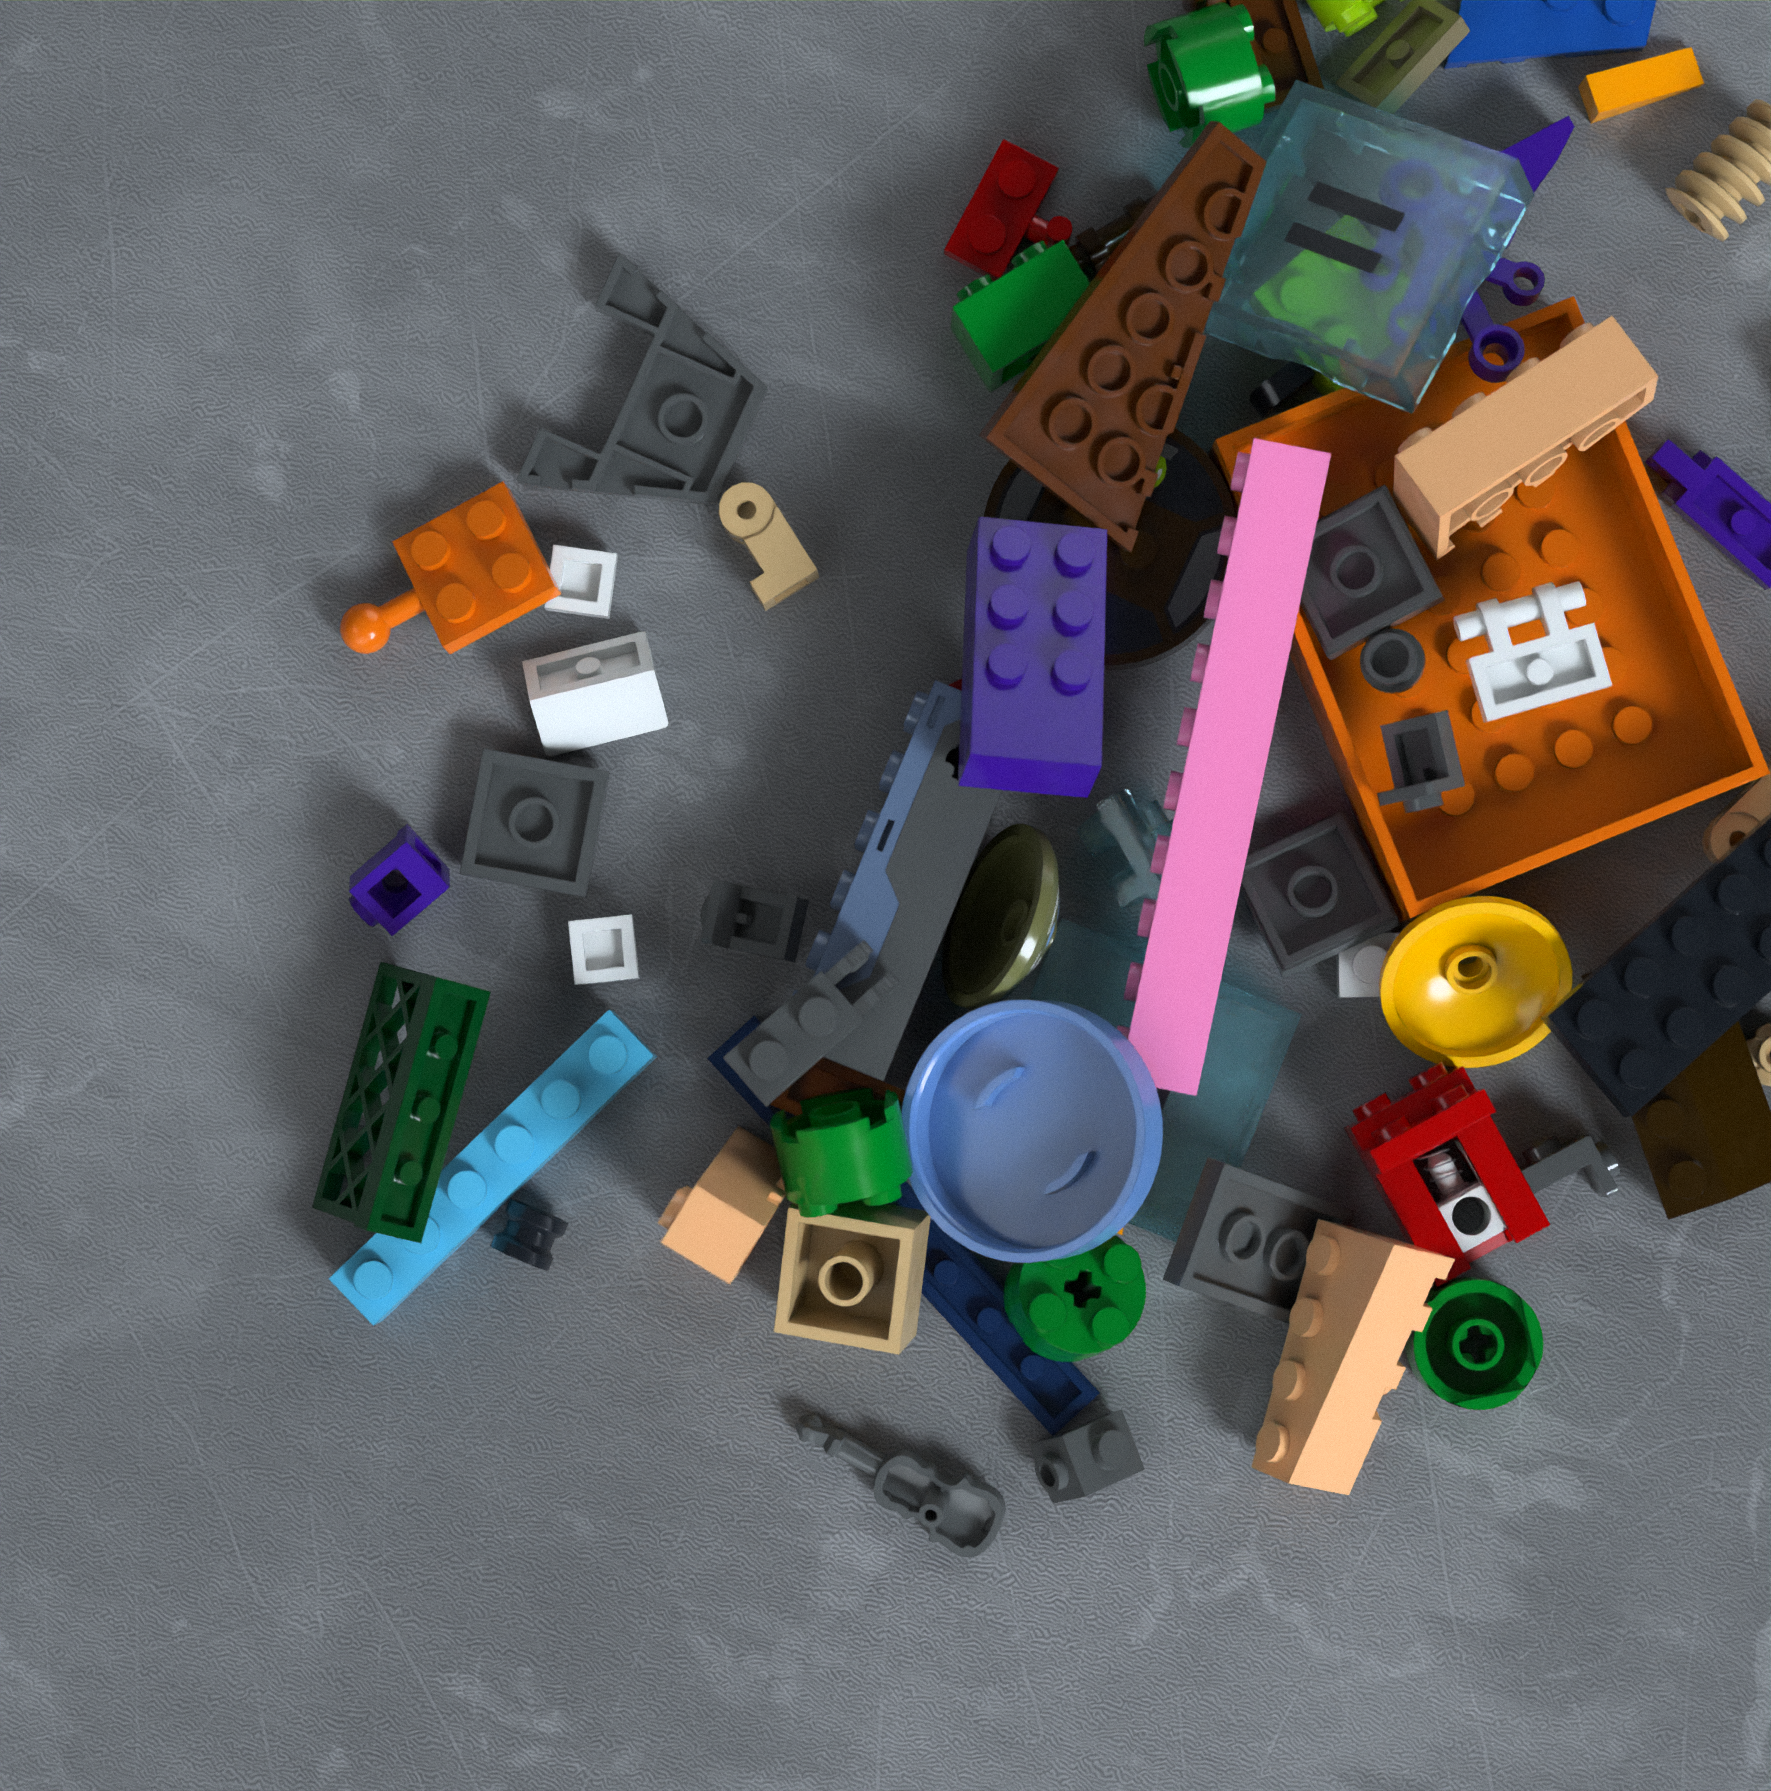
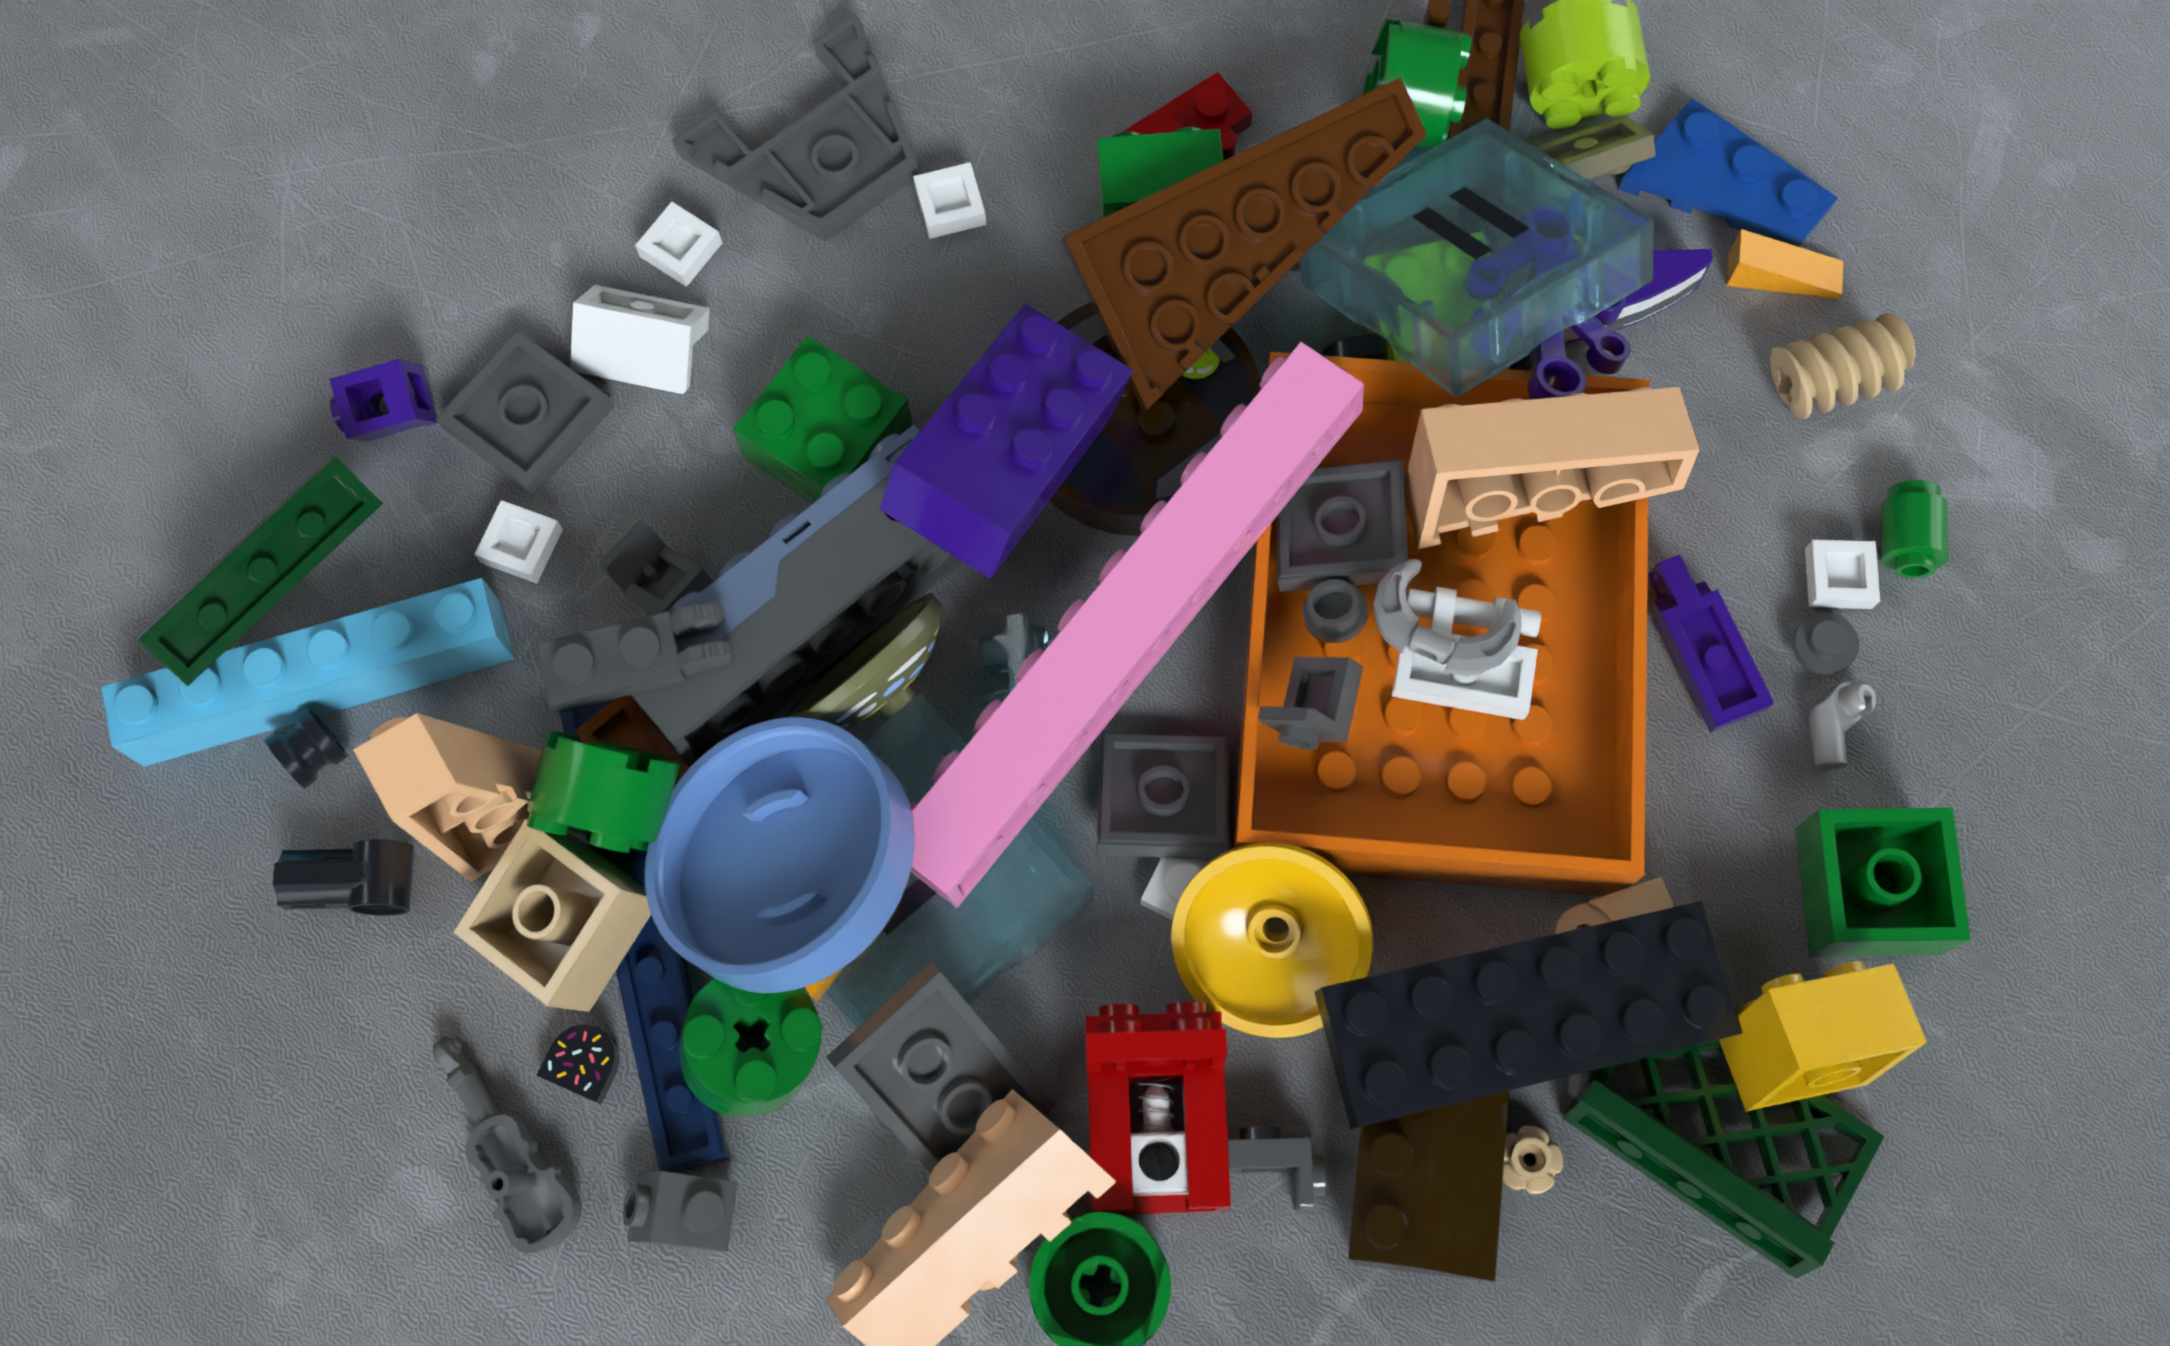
camera: 30 degrees right, 15 degrees down
(467, 572) = (582, 194): orange plate -> none
(648, 1323) = (365, 879): none -> black piece
(756, 521) = (852, 302): tan leg -> none
(815, 407) = (949, 200): none -> white plate
(828, 703) = (818, 420): none -> green brick
(931, 1378) = (582, 1062): none -> black tile
(1537, 667) = (1467, 657): none -> light grey piece

